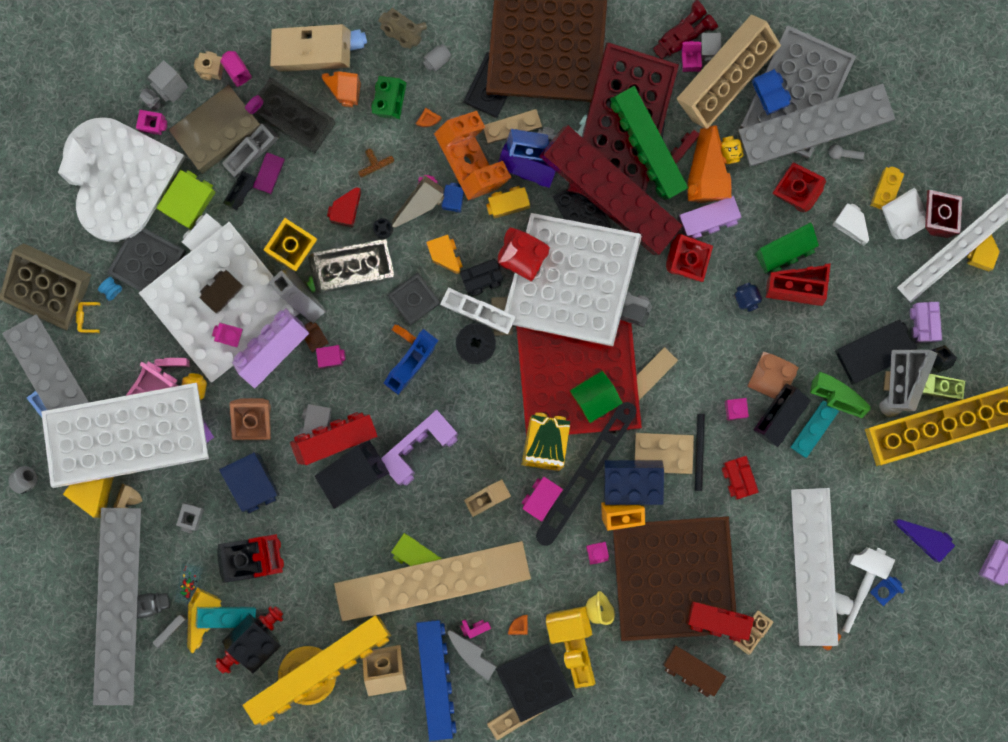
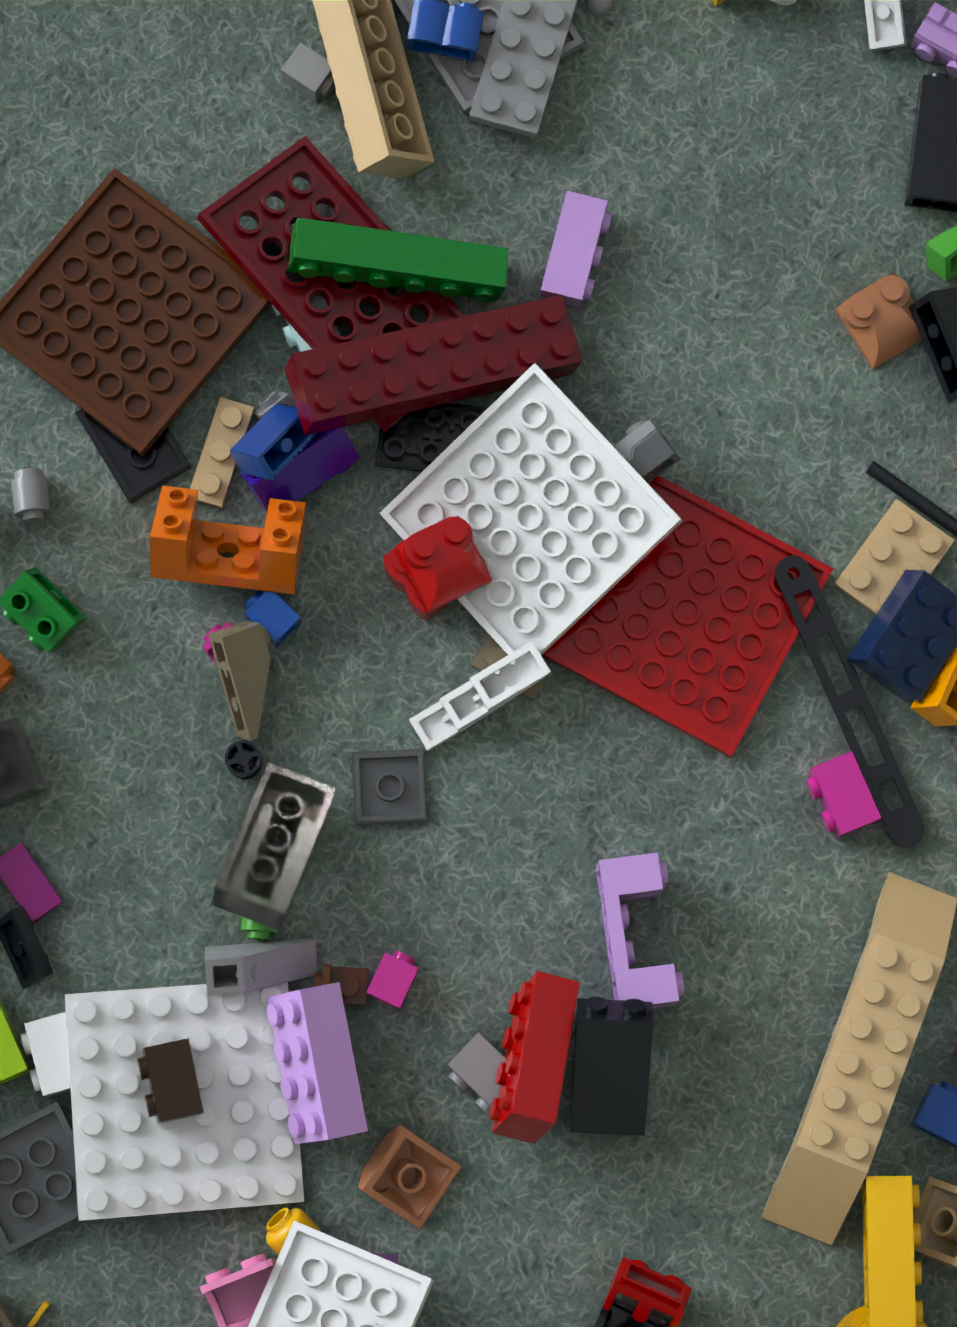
camera: 65 degrees left, 5 degrees down
(109, 288) = (35, 1267): dark azure wheel -> none
(172, 362) = (227, 1244): bright pink tile -> none
(227, 334) = (247, 1120): dark pink bracket -> none
(250, 482) = (513, 1244): dark blue slope -> none
(290, 245) = (177, 918): yellow slope -> none
(345, 208) = (171, 798): red slope -> none
(375, 164) = (131, 704): clear orange piece -> none
(403, 333) = (435, 838): orange tile -> none
(411, 363) = (490, 854): blue arch -> none
(412, 552) = (796, 1055): lime brick -> none
(428, 118) = (116, 573): orange tile -> none
(443, 255) = (351, 691): light orange slope -> none
(479, 333) = (513, 720): black wheel -> none
(481, 277) = (428, 656): black brick -> none
(487, 498) = (786, 880): tan slope -> none
(508, 202) = (339, 537): yellow brick -> none
(546, 442) = (762, 727): slope -> none
(596, 396) = (739, 603): green slope -> none
(654, 371) = (756, 490): tan tile -> none
(684, 32) = (258, 97): dark red piece -> none
(687, 141) = (432, 202): dark red plate -> none
(688, 257) = (615, 322): red slope -> none
(691, 56) = (304, 111): dark pink bracket -> none
(708, 174) = (504, 203): orange wedge -> none
(732, 149) = (490, 150): yellow head -> none
(736, 409) = (899, 406): dark pink brick -> none
(748, 297) = (737, 274): dark blue head -> none
(788, 249) = (704, 166): green slope -> none
(800, 187) = (620, 87): red slope -> none
(800, 285) = (773, 185): red wedge -> none
(852, 223) = (728, 47): white slope -> none

